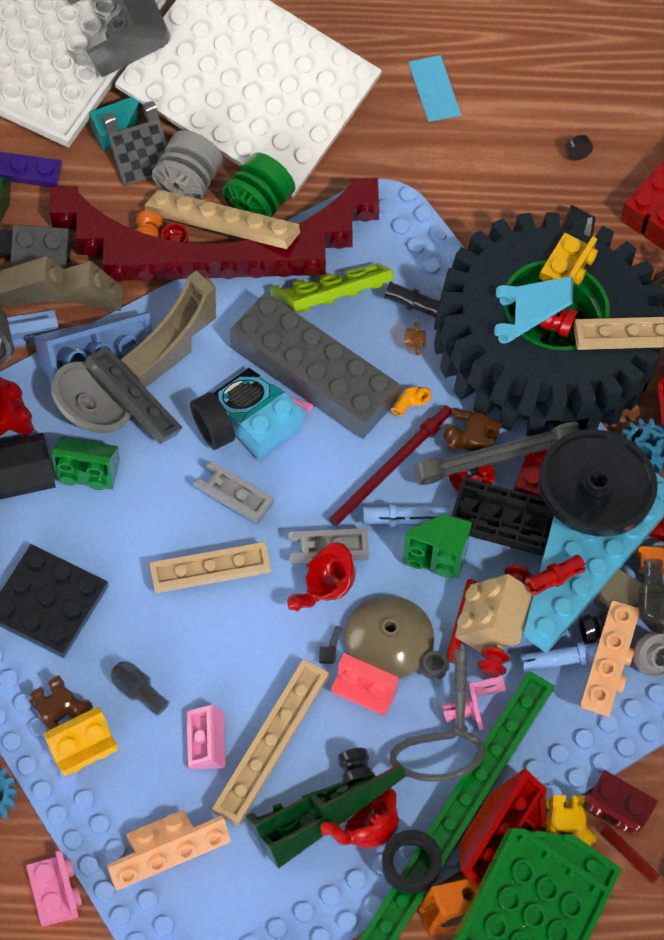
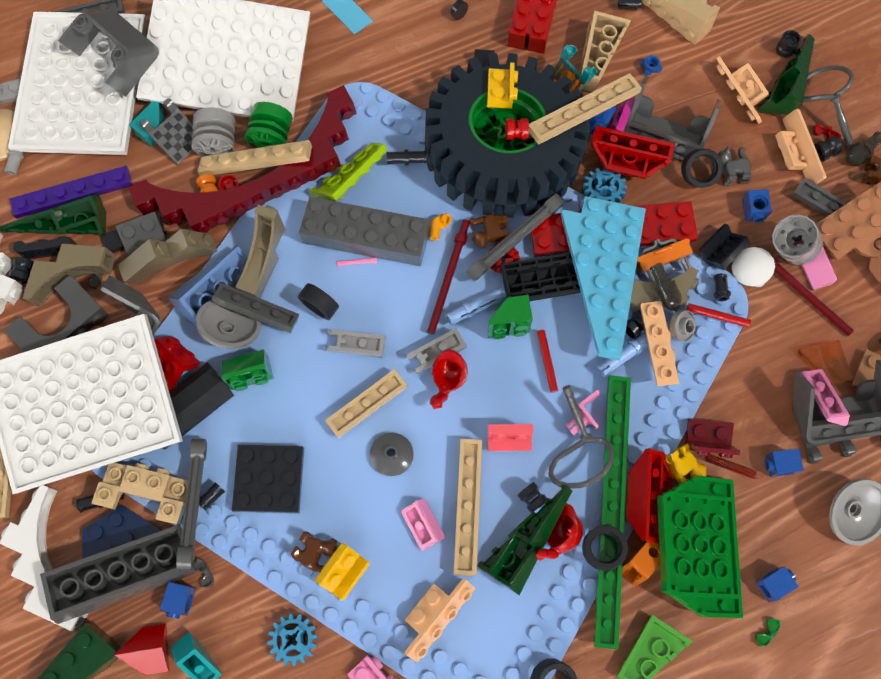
camera: 20 degrees left, 10 degrees up
(26, 326) = (160, 291): light blue panel -> none
(138, 686) = (360, 511): clear smoke arm -> none
(214, 653) = (395, 464): none -> dark grey dish
(259, 412) = (344, 279): medium azure slope -> none
(328, 653) = (472, 426): clear smoke hand -> none
(390, 651) = (503, 407): dark tan dish -> none
(415, 339) = (421, 183): clear orange plate -> none
(437, 658) = (545, 394): dark grey plate -> none
(495, 617) = (572, 349): tan brick -> none
(533, 305) = (497, 126): medium azure flag -> none
(555, 575) = (601, 305): red pin -> none
(597, 482) = (596, 229): black dish -> none

